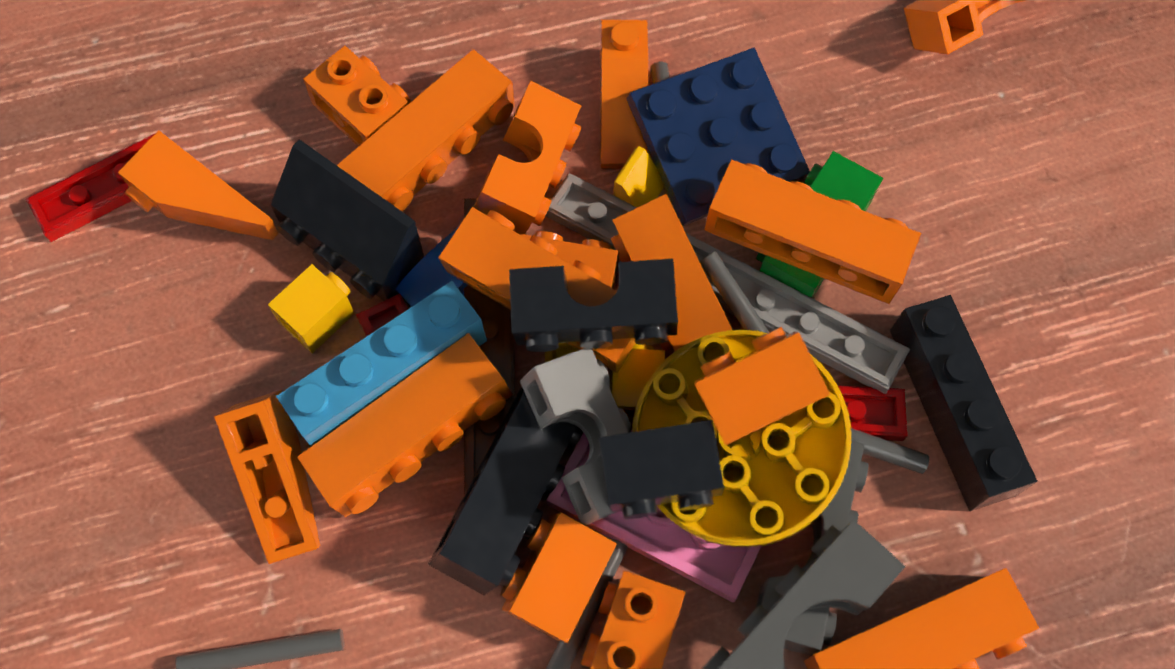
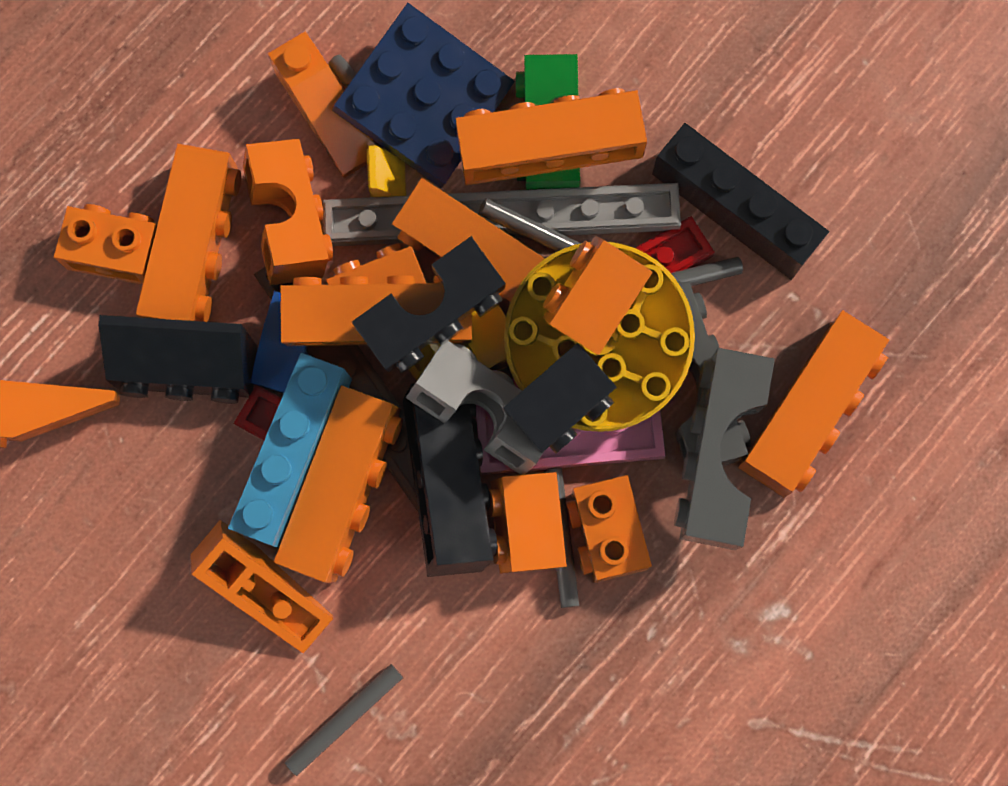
camera: 30 degrees left, 10 degrees up
(313, 307) = (197, 439): yellow brick -> none

